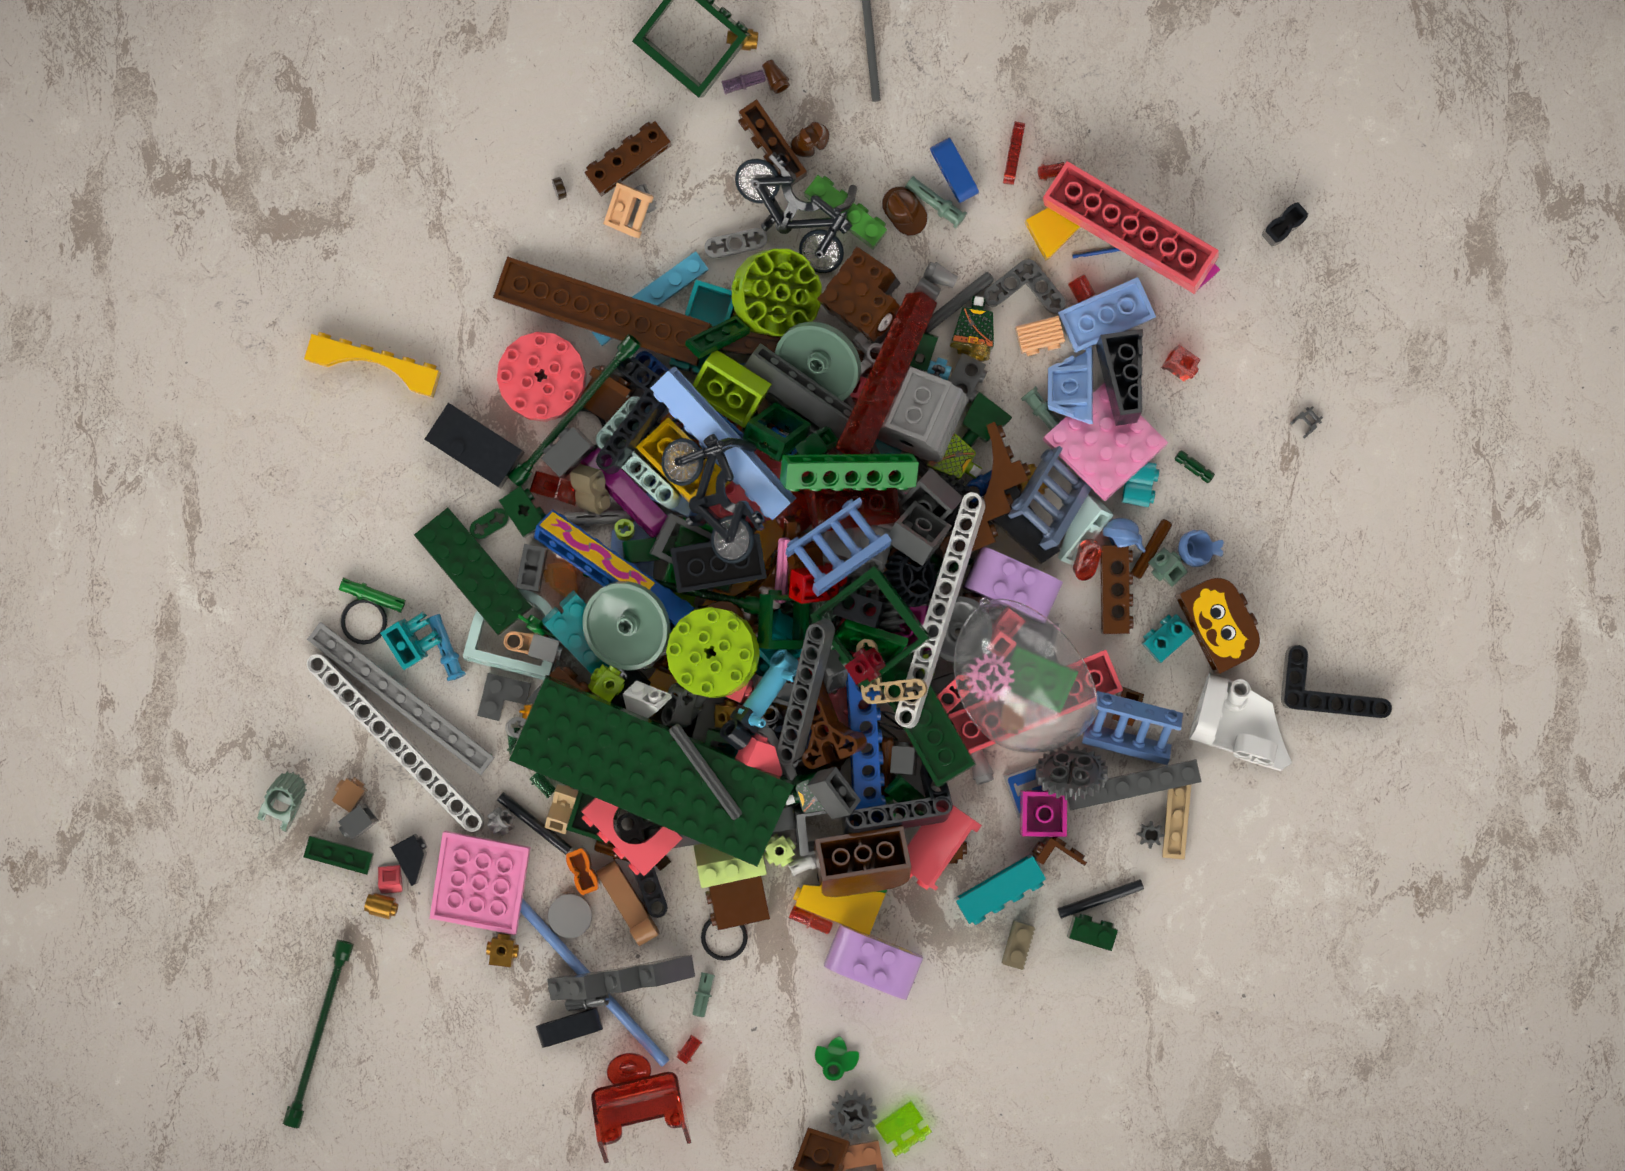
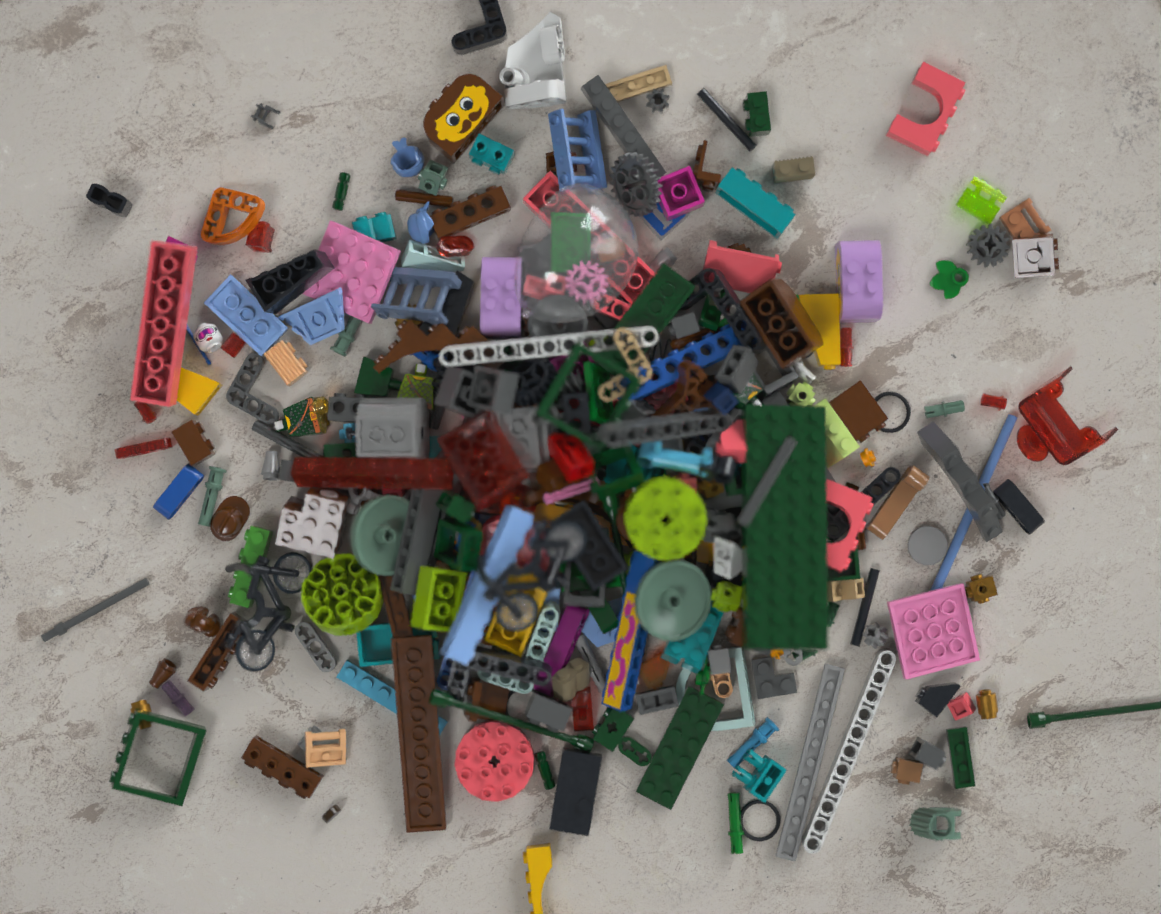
camera: 115 degrees left, 0 degrees up
(509, 423) = (544, 770): none -> dark green axle
(584, 876) = (883, 555): orange brick -> none
(620, 525) = (588, 641): lime bush -> none
(686, 893) = (868, 457): none -> light orange plate
(717, 337) = (400, 627): dark green tile -> none
(811, 763) = (721, 398): none -> dark blue panel
(840, 568) = (550, 440): medium blue fence -> none
(861, 464) = (472, 496): green brick -> none
(865, 665) = (623, 385): dark red brick -> none
(997, 207) = (193, 442): none -> reddish brown piece
(1033, 1141) = (946, 91): none -> coral arch
(1100, 266) = (208, 337): none -> white head
(1229, 339) = (223, 205): none -> orange beam

